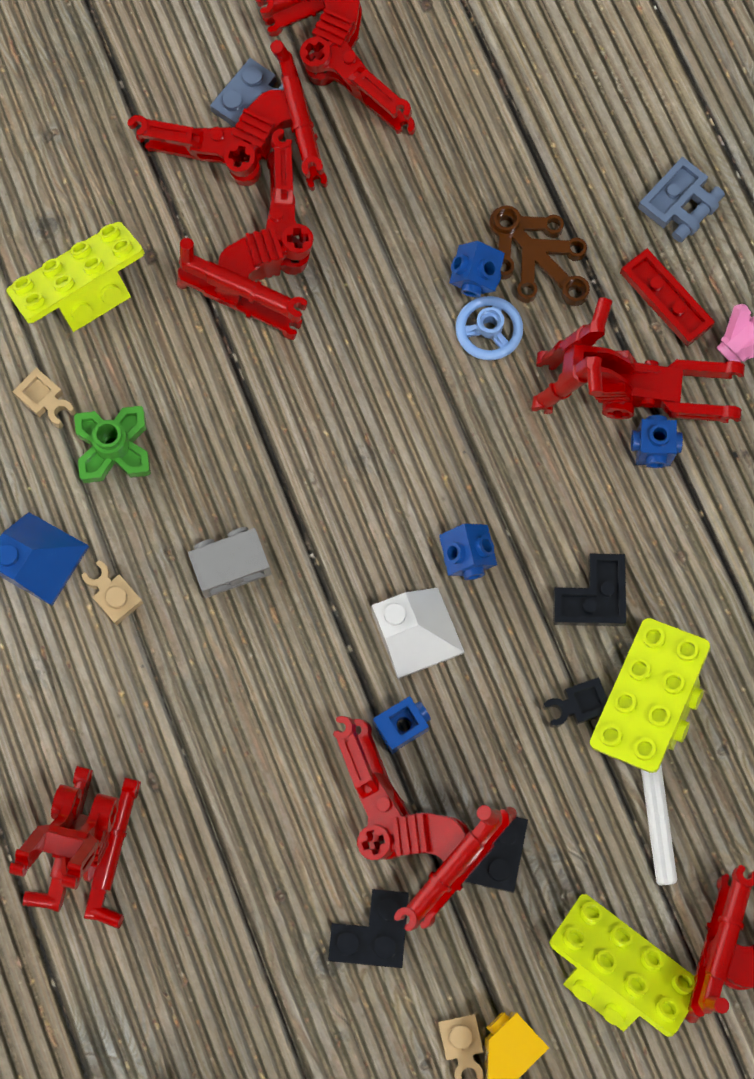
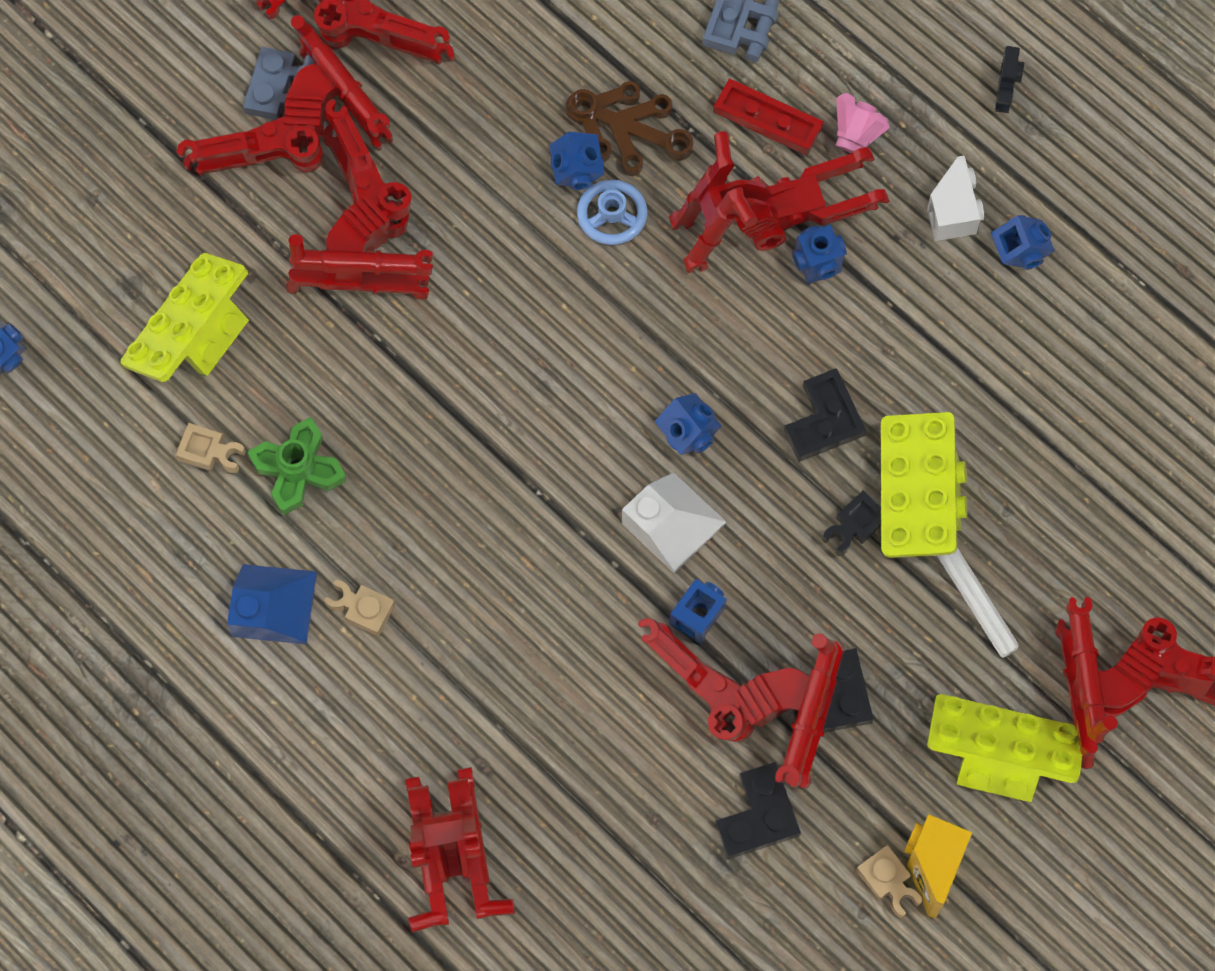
camera: 25 degrees left, 5 degrees down
(229, 561) = (465, 528): light grey brick -> none

